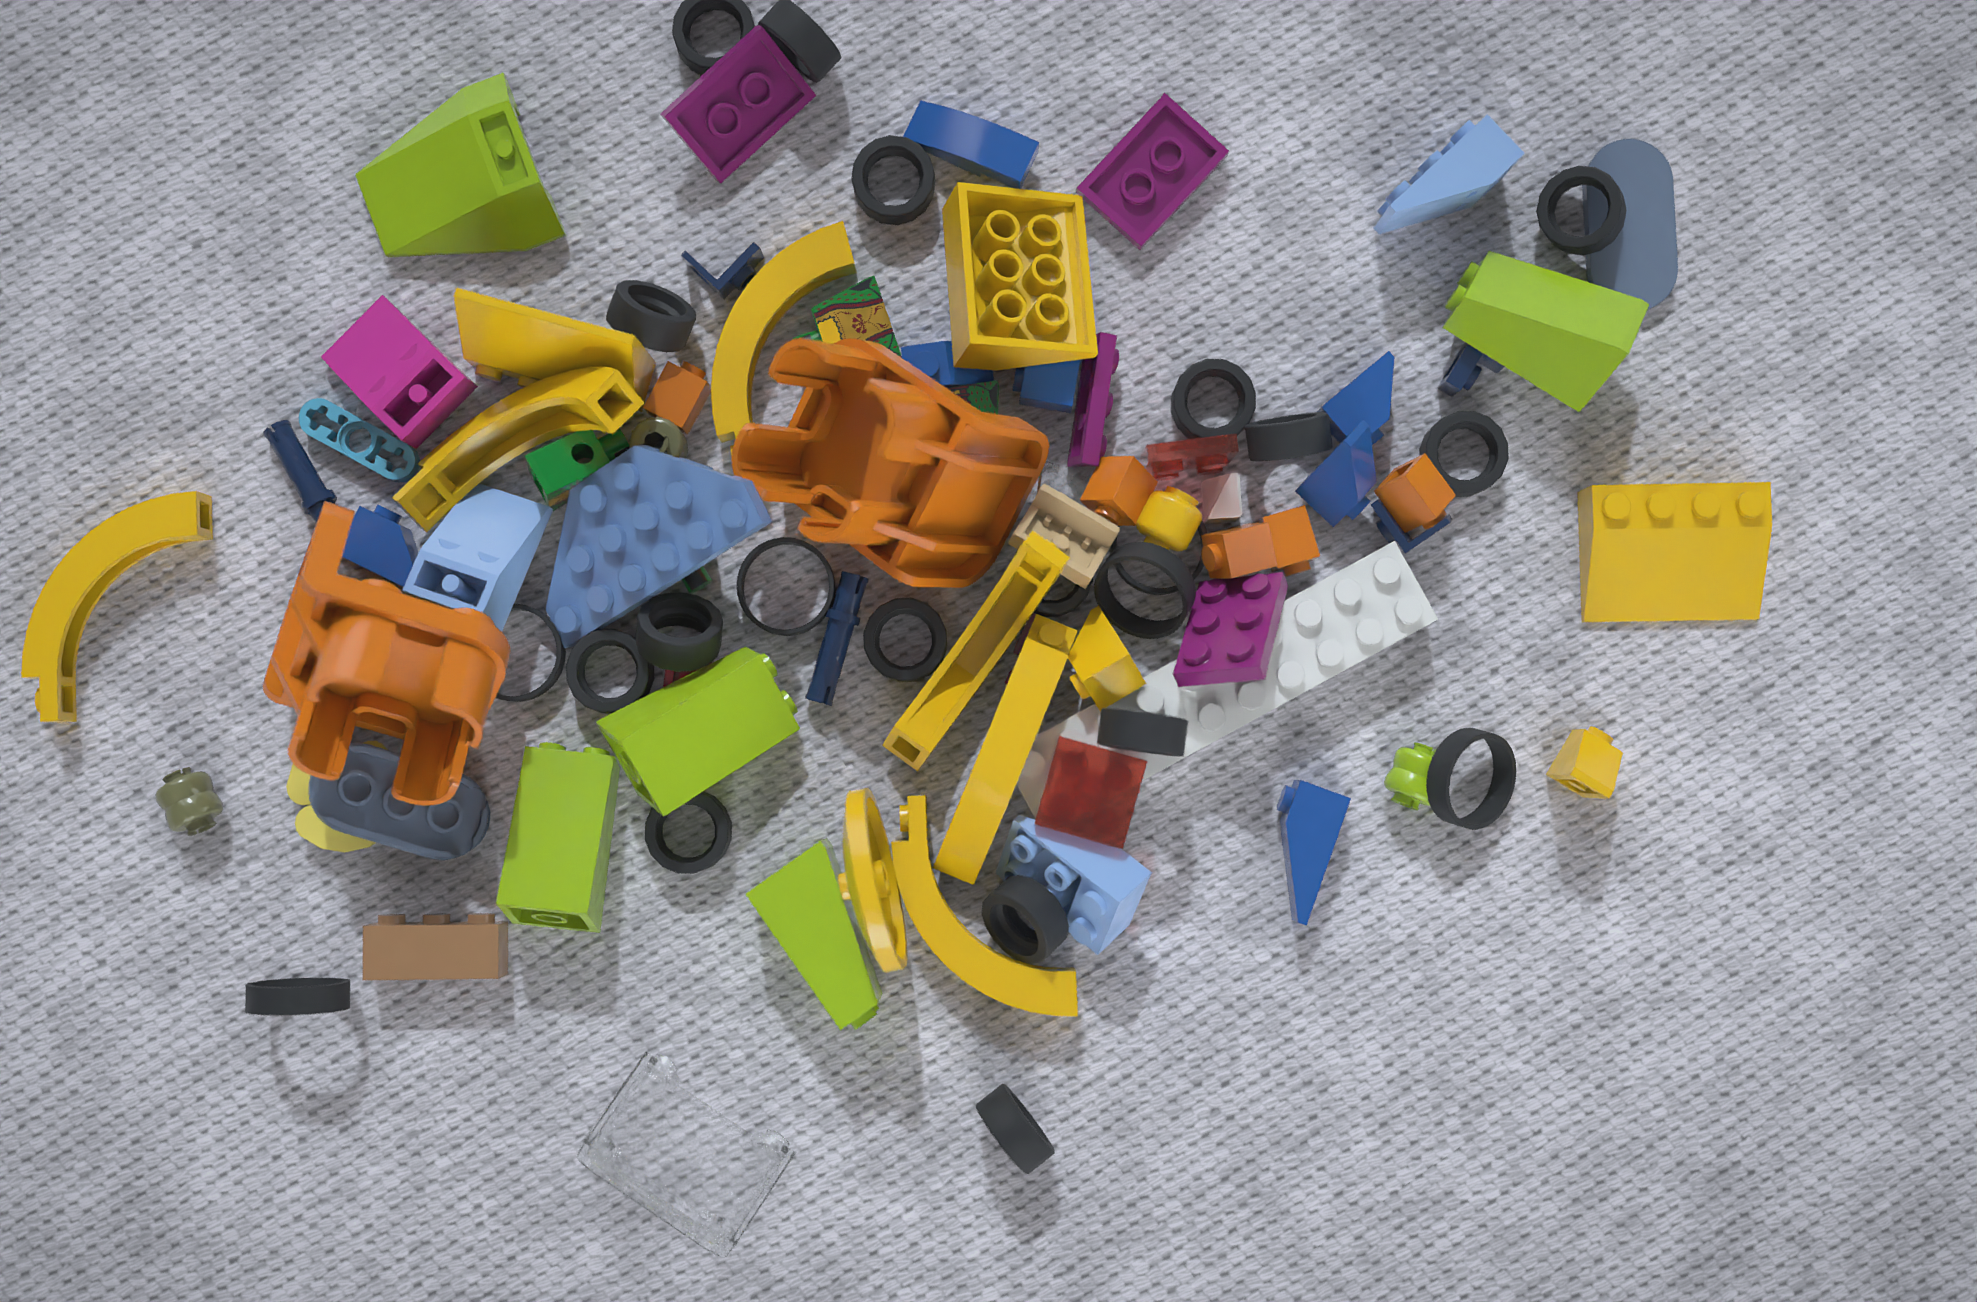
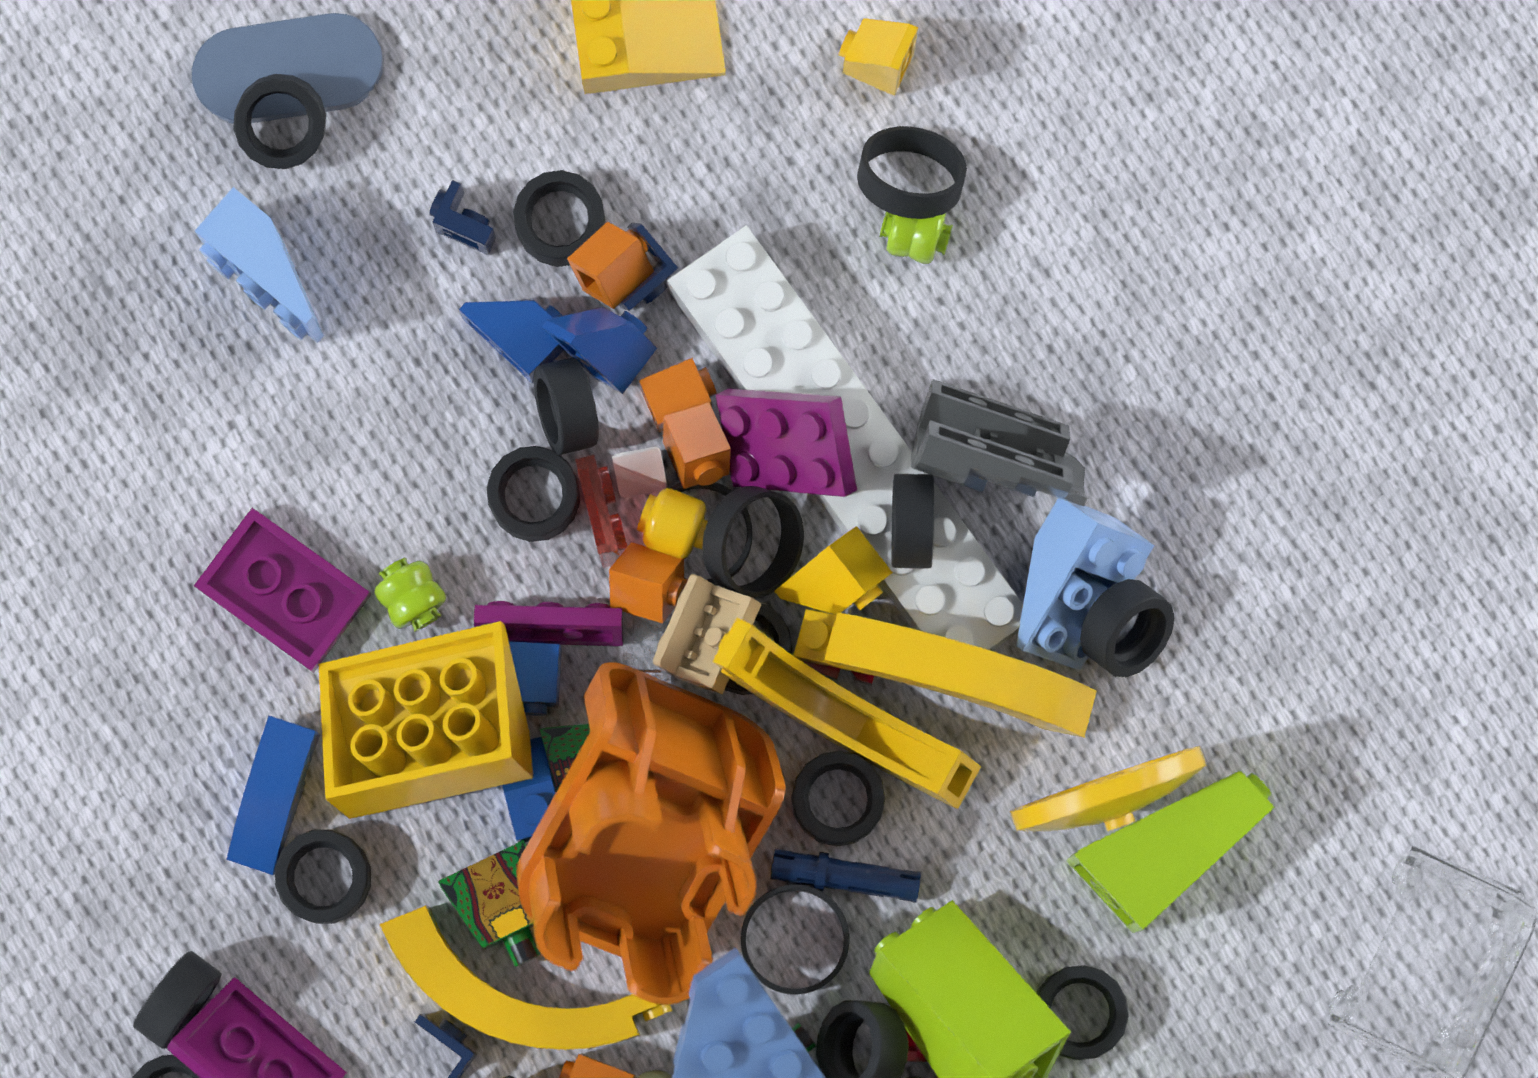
camera: 95 degrees left, 5 degrees down
(994, 974) = (1192, 648): yellow arch -> none
(1015, 1129) = (1352, 612): black tyre -> none
(1090, 792) = (982, 570): clear red plate -> none
(1134, 281) = (410, 594): none -> lime piece
(1207, 823) = (986, 440): none -> dark grey slope
(1308, 834) = (994, 337): blue slope -> none
(1544, 325) = (413, 147): lime slope -> none

